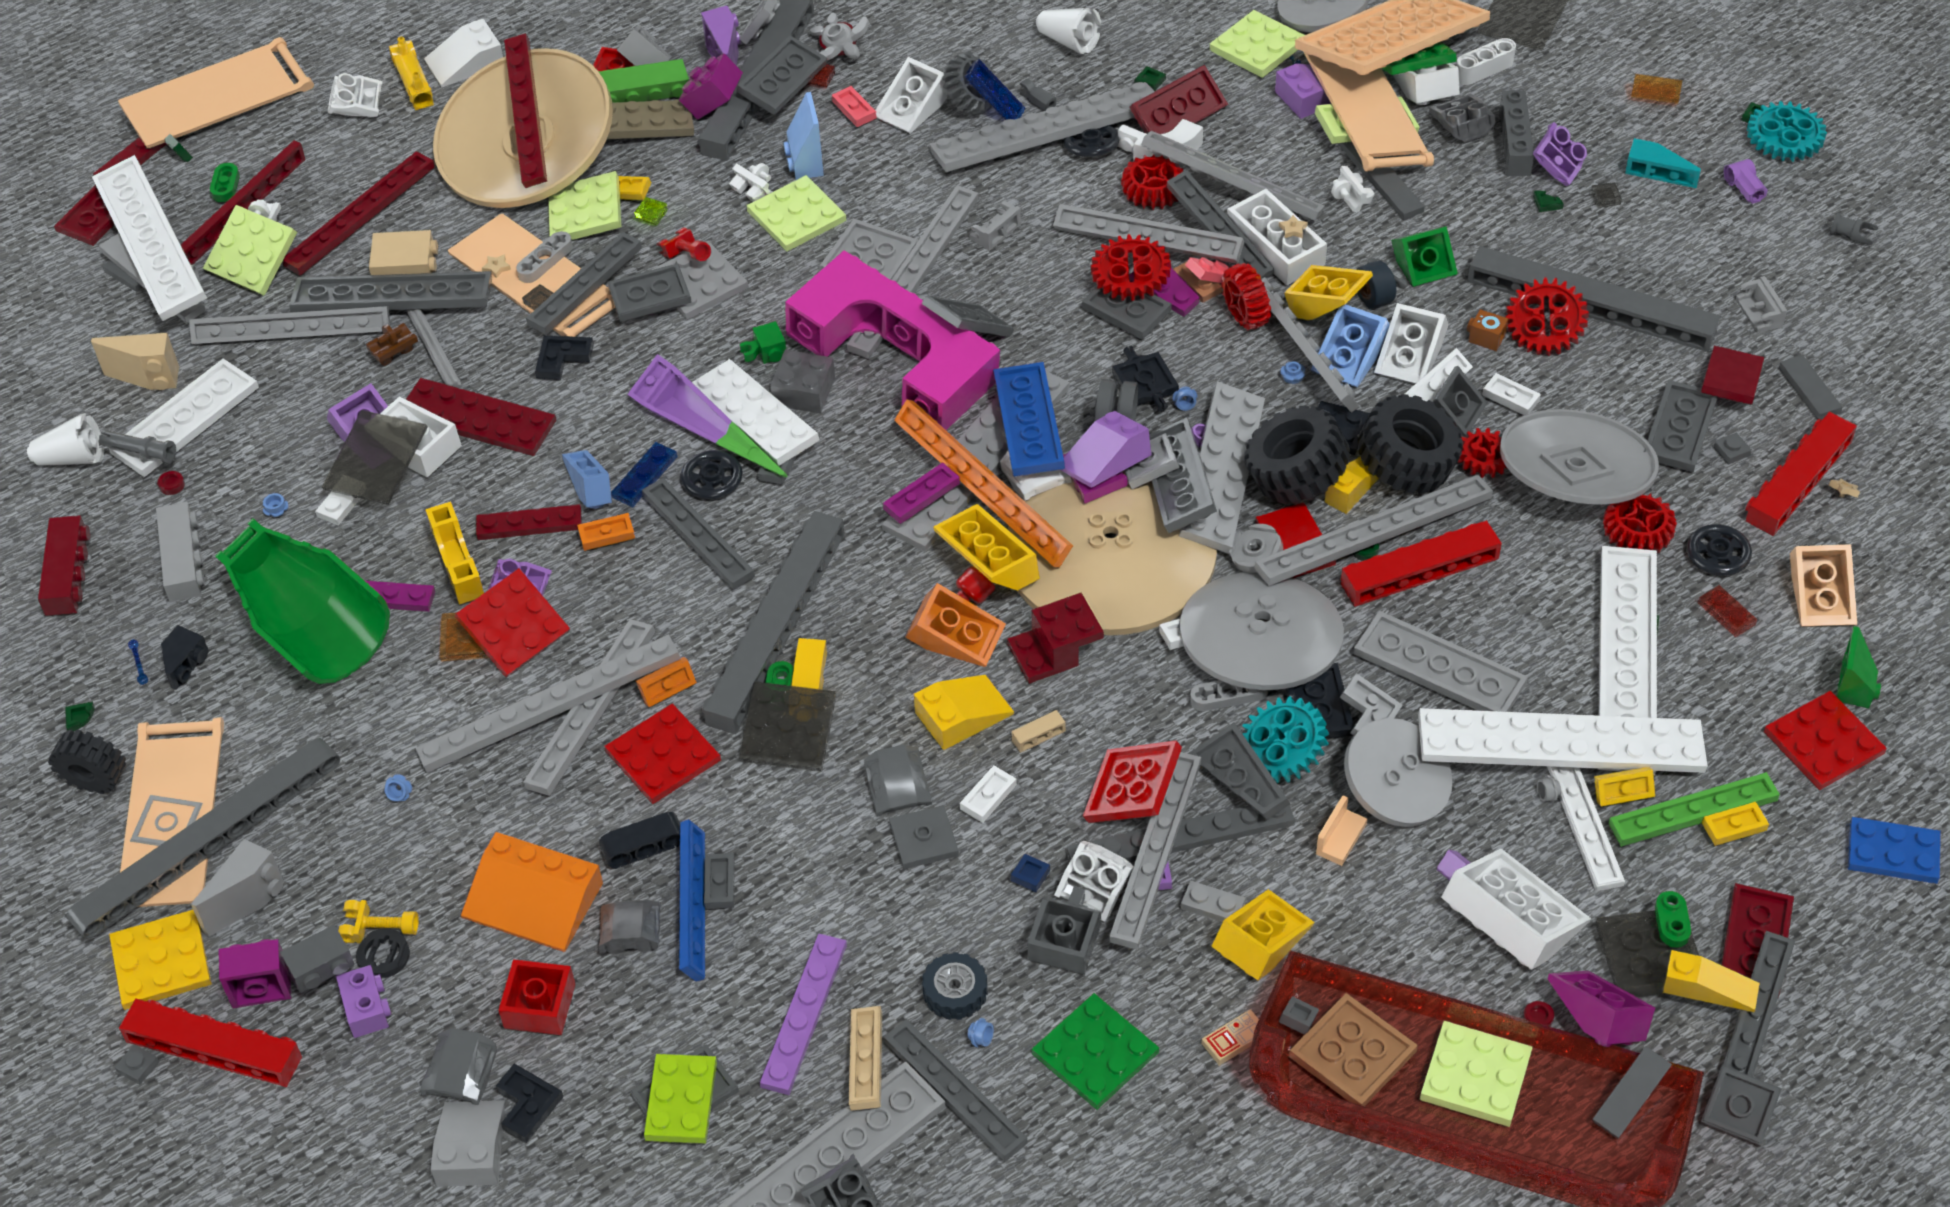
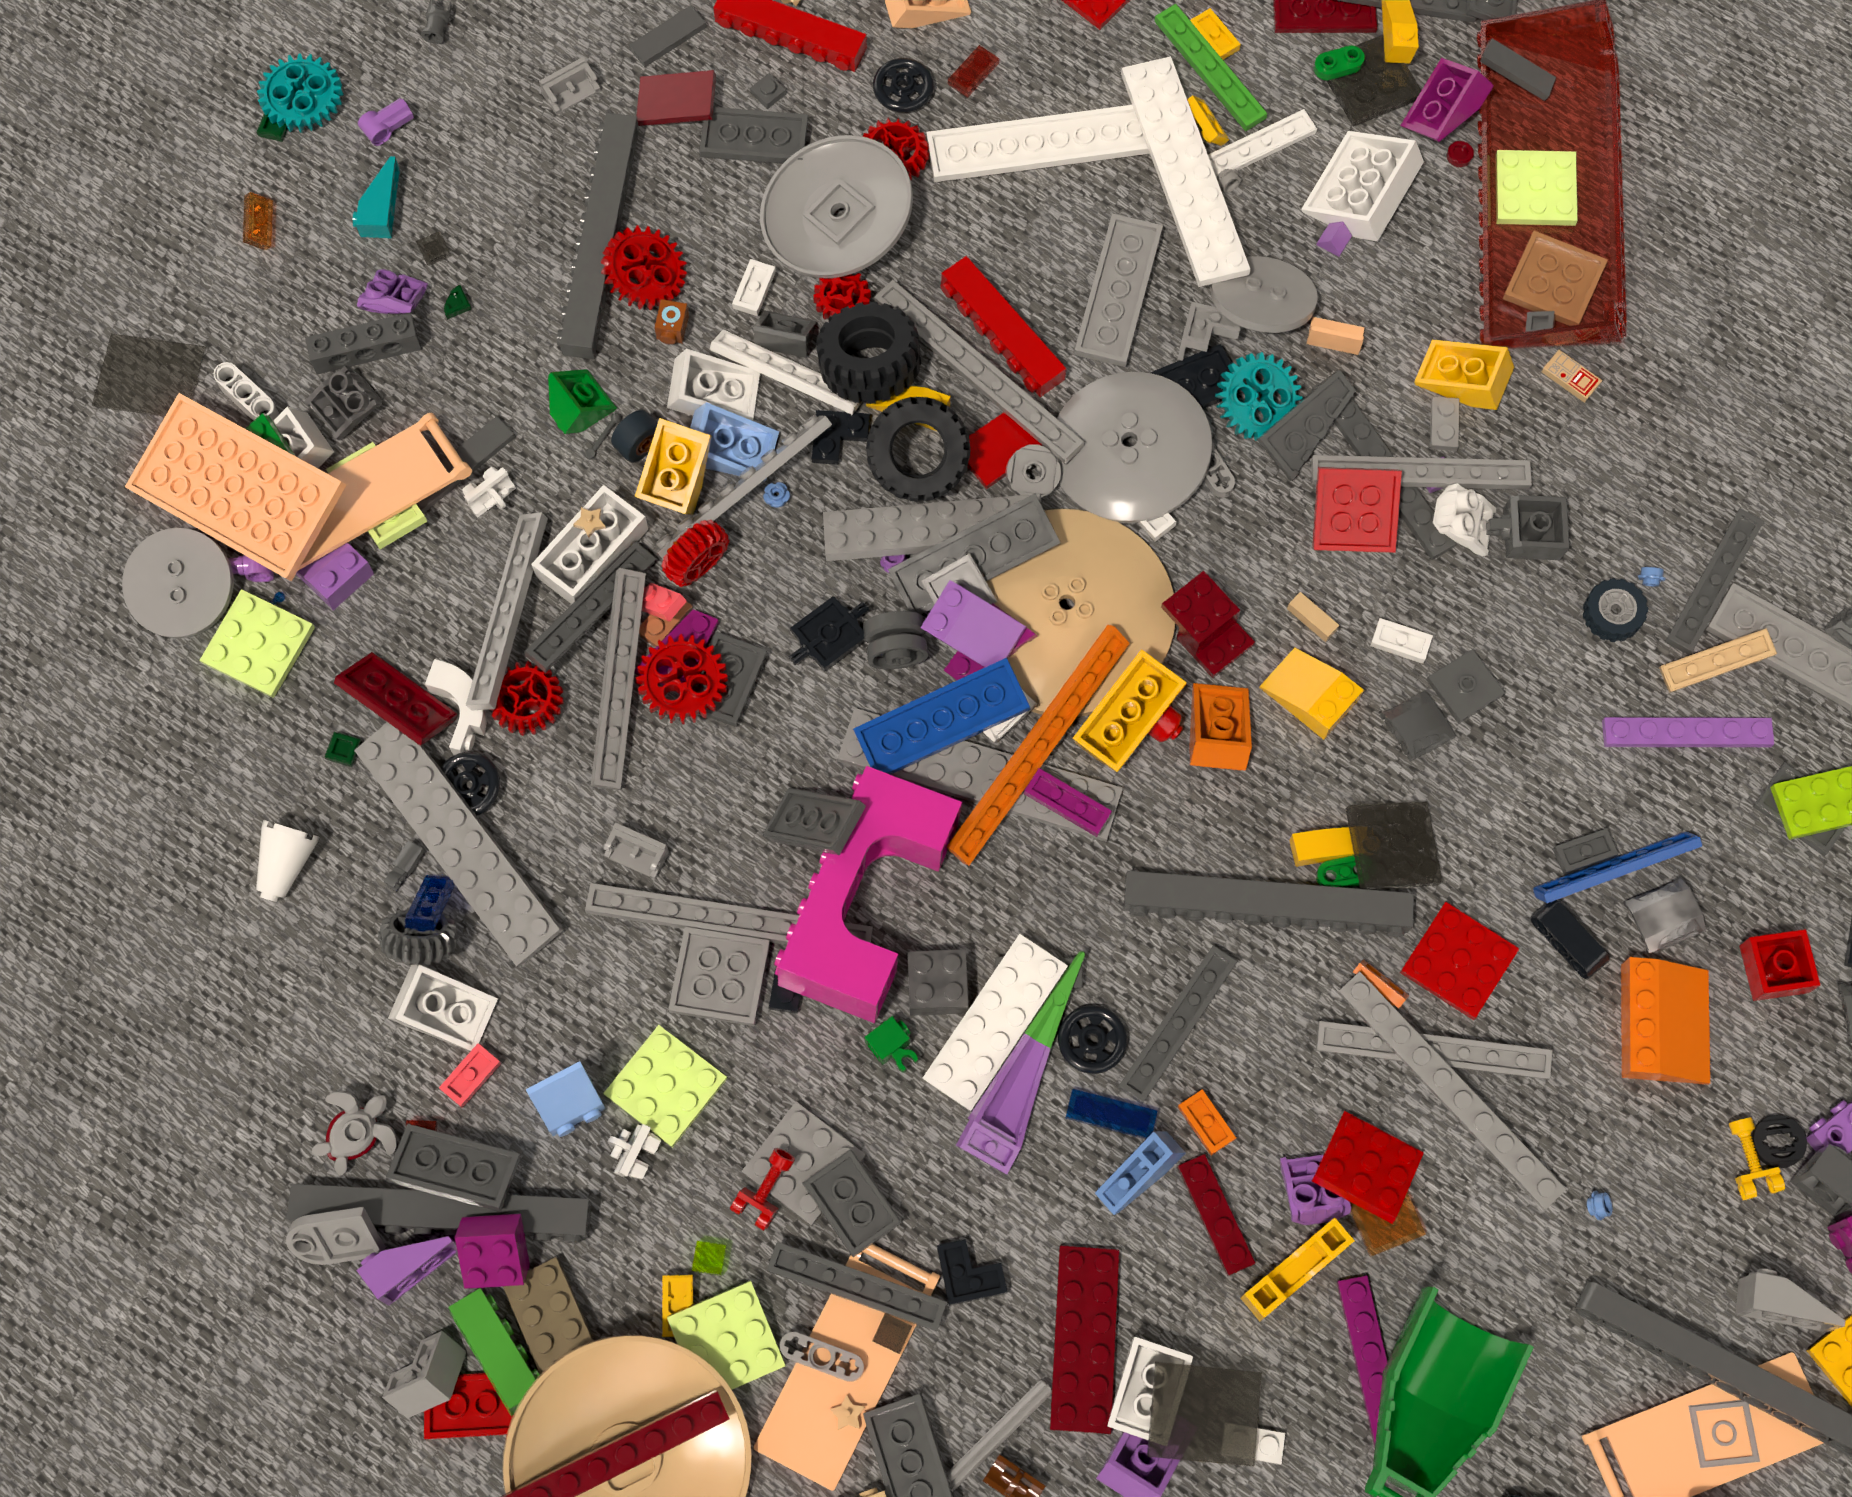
camera: 110 degrees left, 20 degrees up
(1030, 872) = (1473, 580): dark blue plate -> none
(1095, 1051) = (1628, 481): green plate -> none
(1185, 403) = (844, 588): medium blue plate -> none

